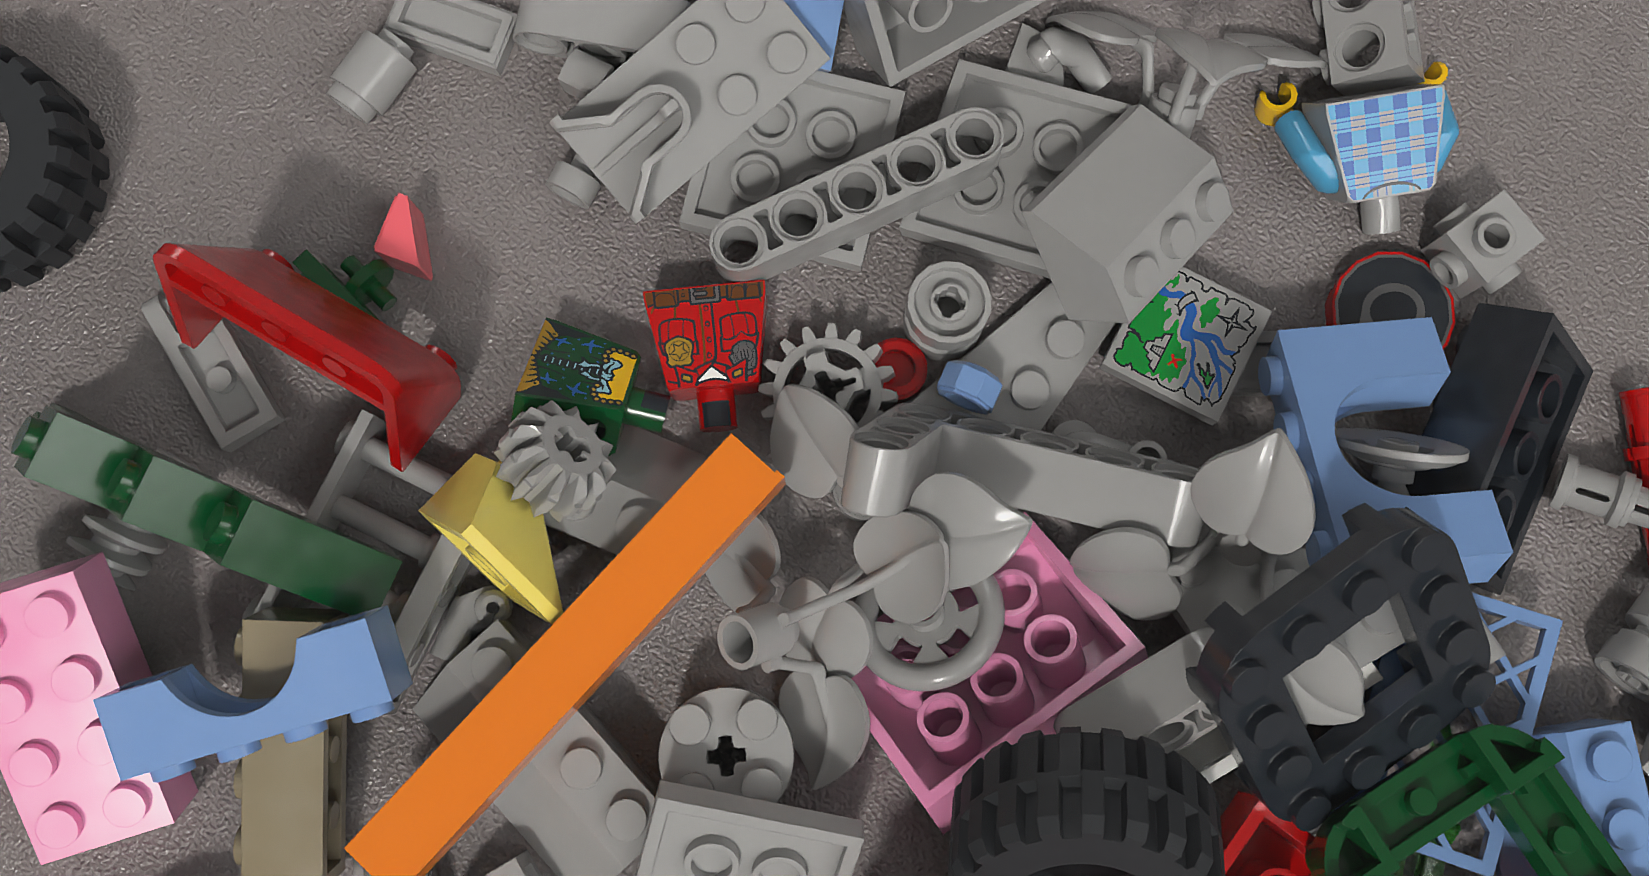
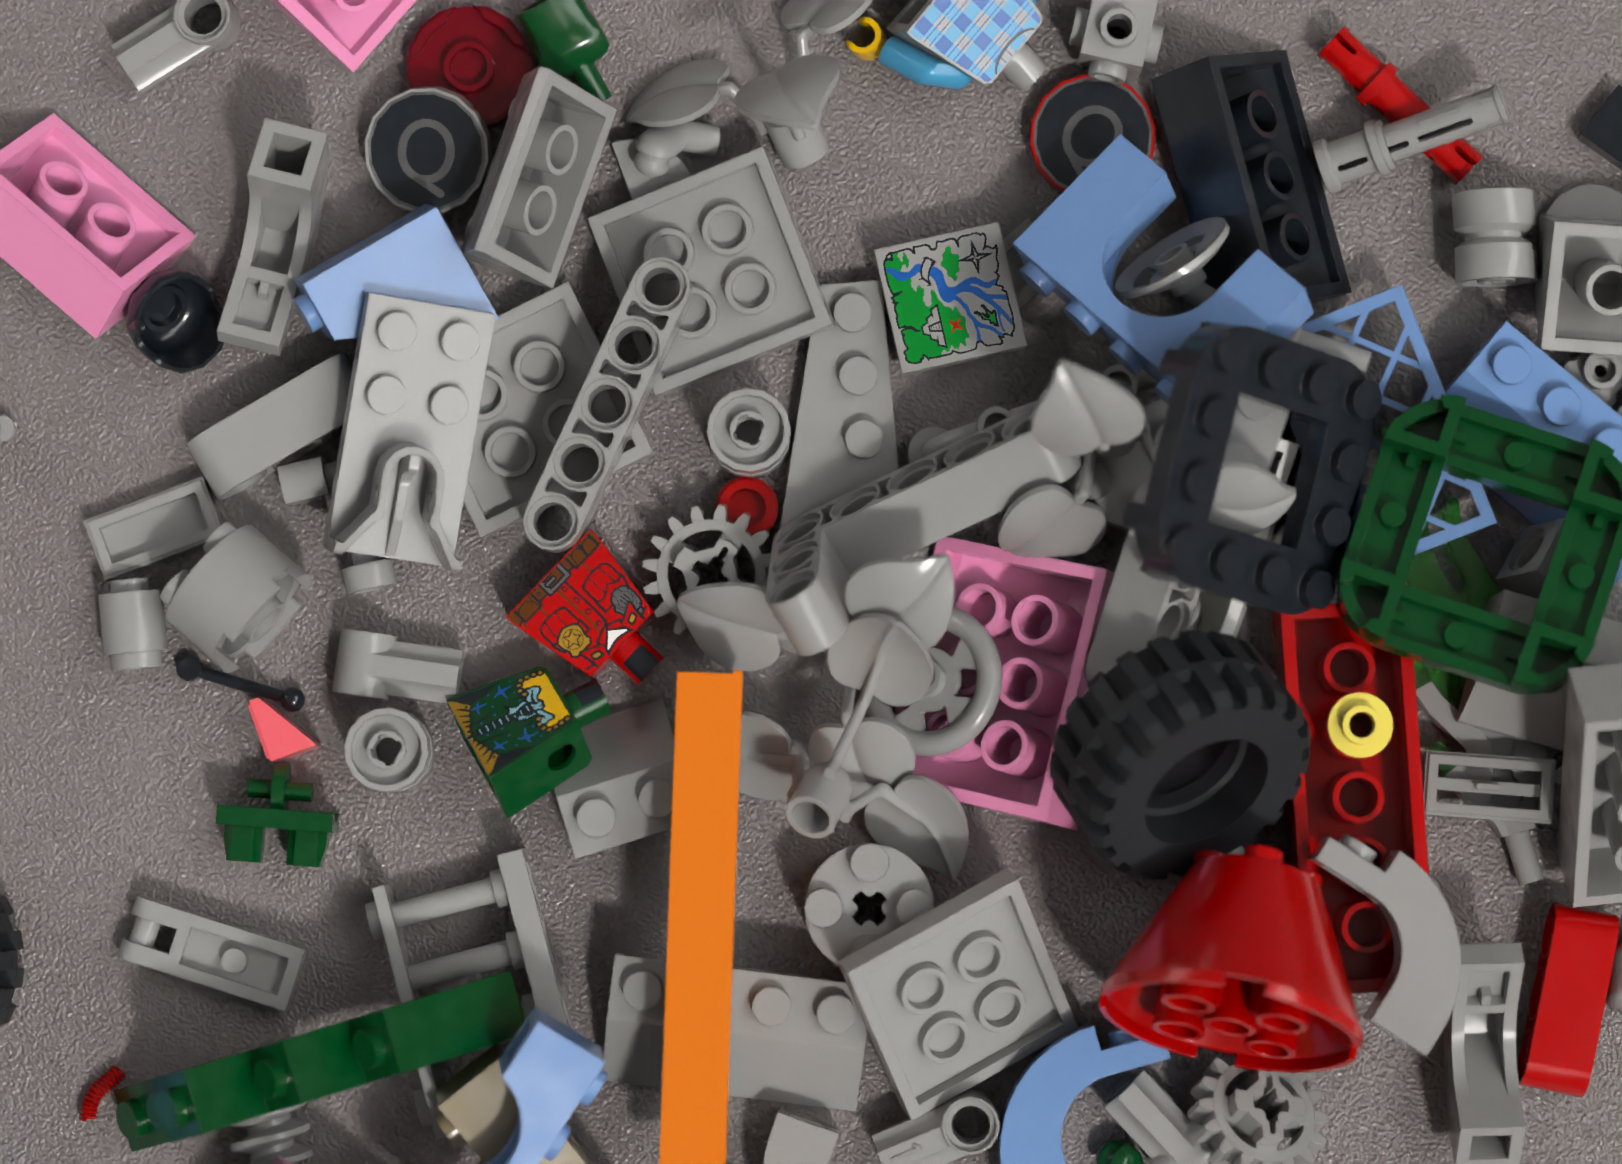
camera: 40 degrees left, 5 degrees up
(30, 398) = (90, 1105): none -> red leg
(315, 327) = (295, 855): red windscreen -> none
(390, 148) = (191, 669): none -> black hinge
(458, 108) = (234, 595): none -> light grey brick
(468, 616) = (584, 973): light grey arm -> none
(470, 319) = (389, 750): none -> light grey wheel
(498, 535) = (563, 889): light yellow slope -> none
(525, 258) = (383, 667): none -> light grey piece
(554, 461) = (564, 801): light grey gear -> none
(969, 386) = (816, 478): medium blue tile -> none
(1126, 217) = (827, 248): light grey slope -> none

